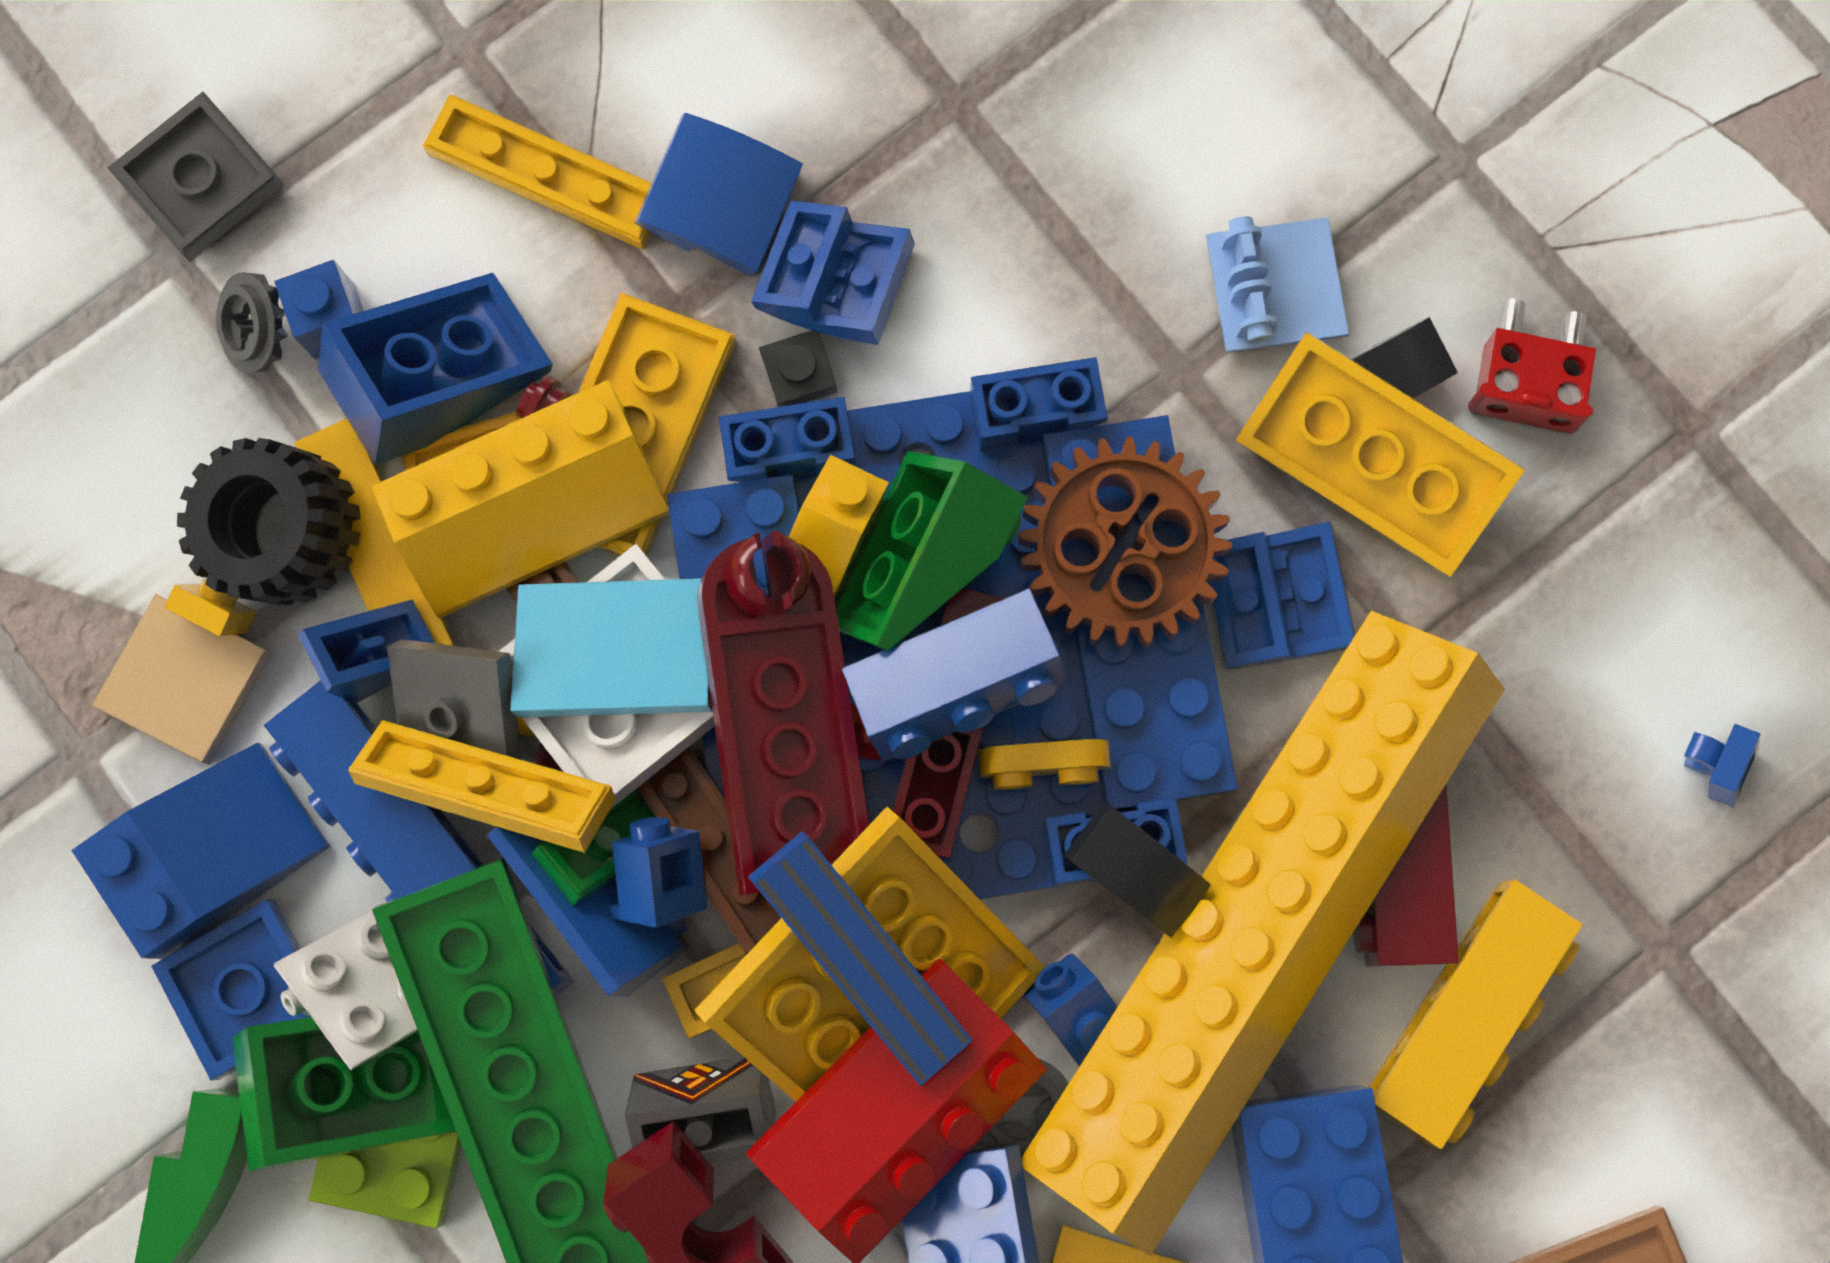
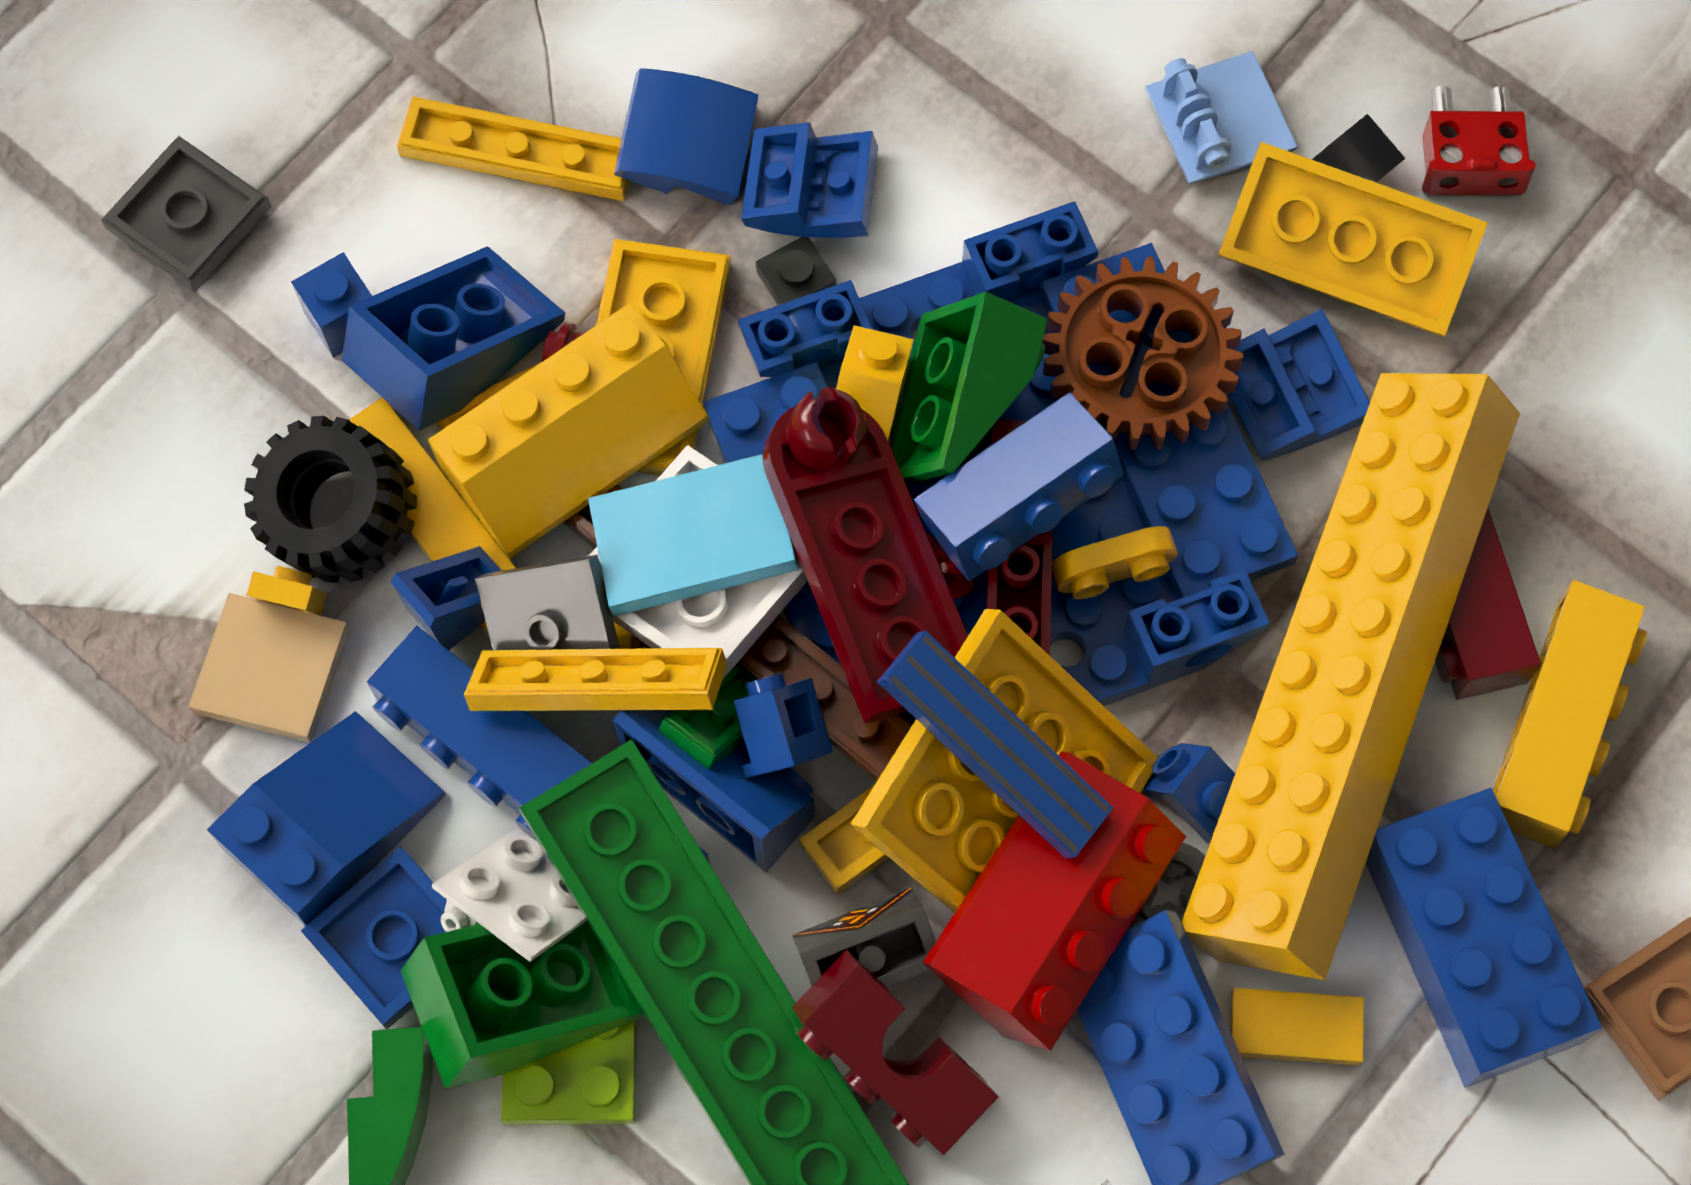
camera: 15 degrees left, 10 degrees down
(254, 341) = (264, 352): dark grey gear -> none
(1137, 869) = (1227, 629): black slope -> none

